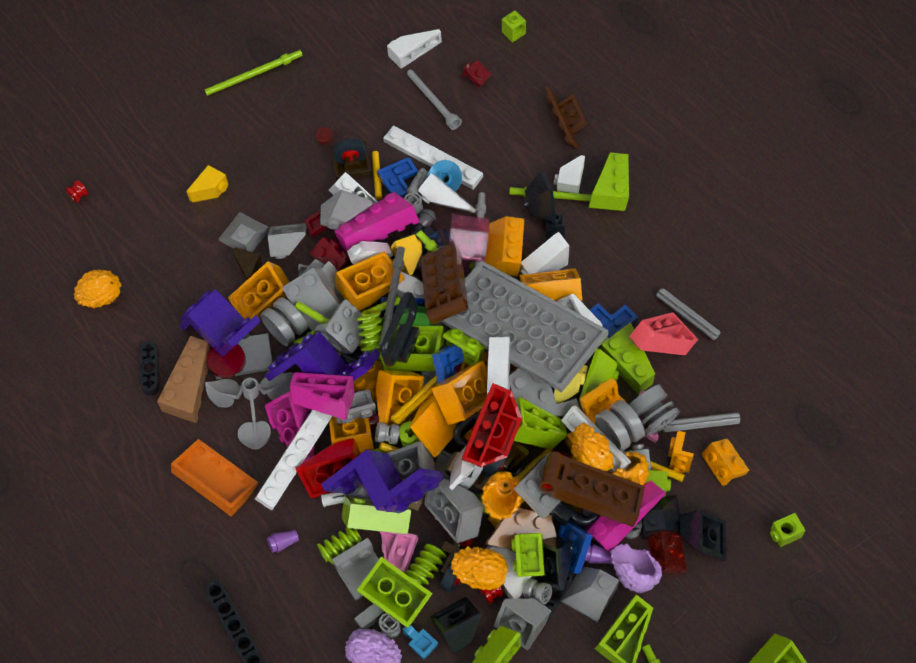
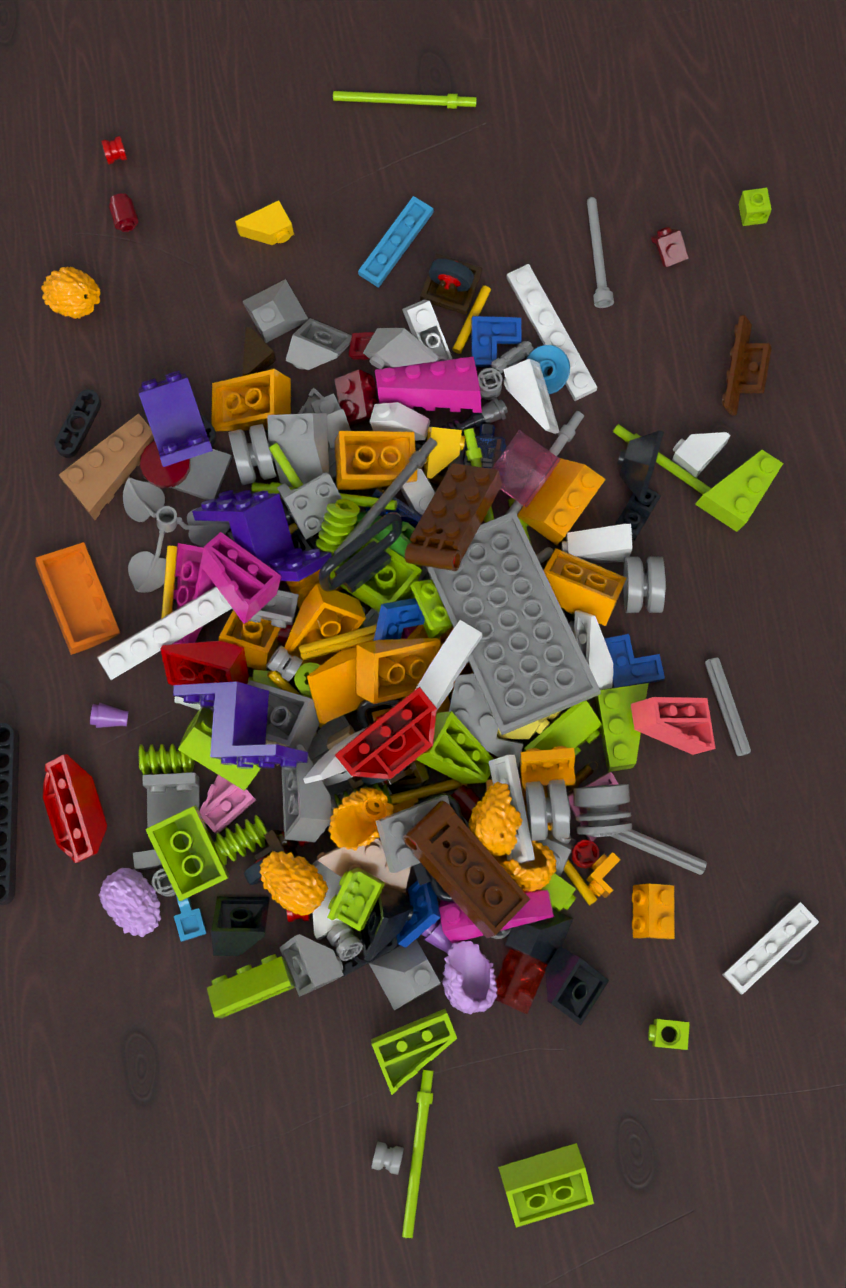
camera: 30 degrees right, 15 degrees up
(105, 224) = (123, 212): none -> dark red brick
(272, 431) = (169, 580): none -> yellow bar
(293, 612) = (73, 808): none -> red wedge
(299, 154) = (395, 241): none -> dark azure plate
(324, 135) = (439, 231): clear red plate -> none
(412, 46) = (613, 167): white slope -> none
(590, 265) = (646, 584): none -> light grey wheel
(661, 446) = (588, 851): none -> red wheel
(813, 442) = (770, 948): none -> white plate

